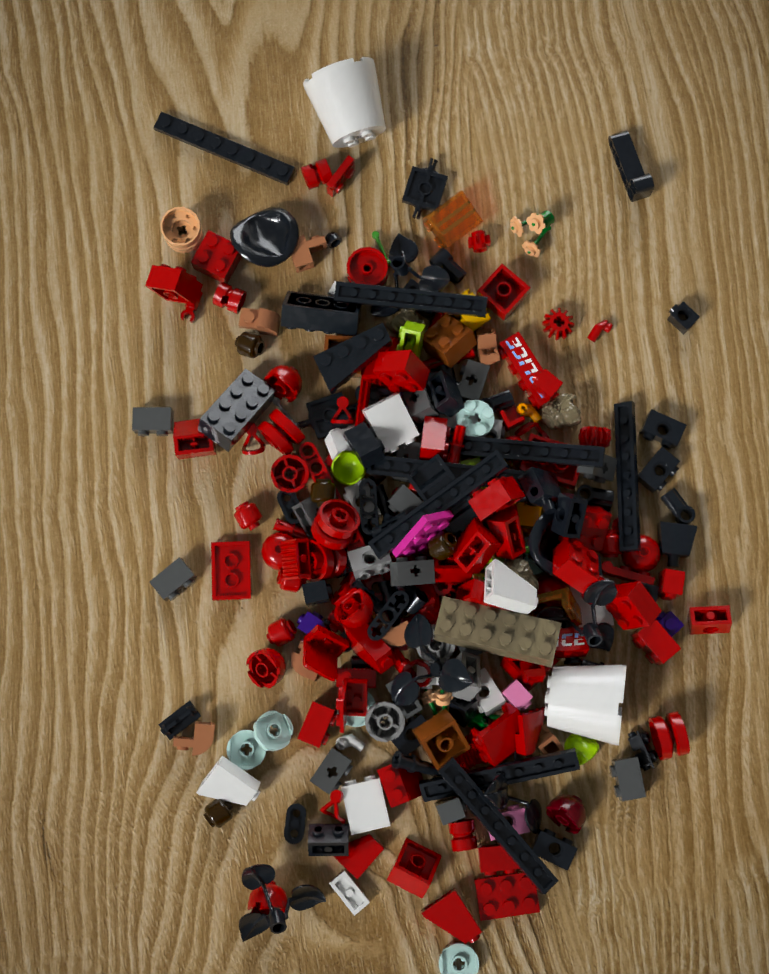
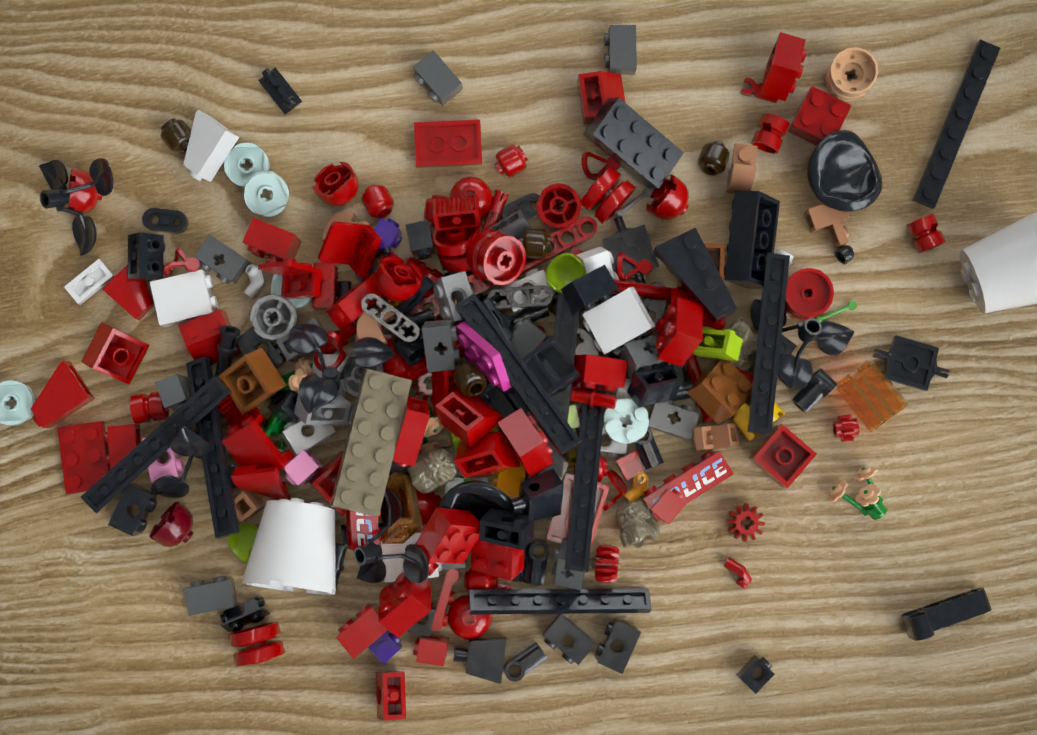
camera: 85 degrees right, 5 degrees up
(200, 741) = (254, 112): nougat brick -> none
(337, 181) = (917, 257): red plate -> none
(508, 589) = (416, 454): white slope -> none
(532, 672) = (325, 484): red panel -> none

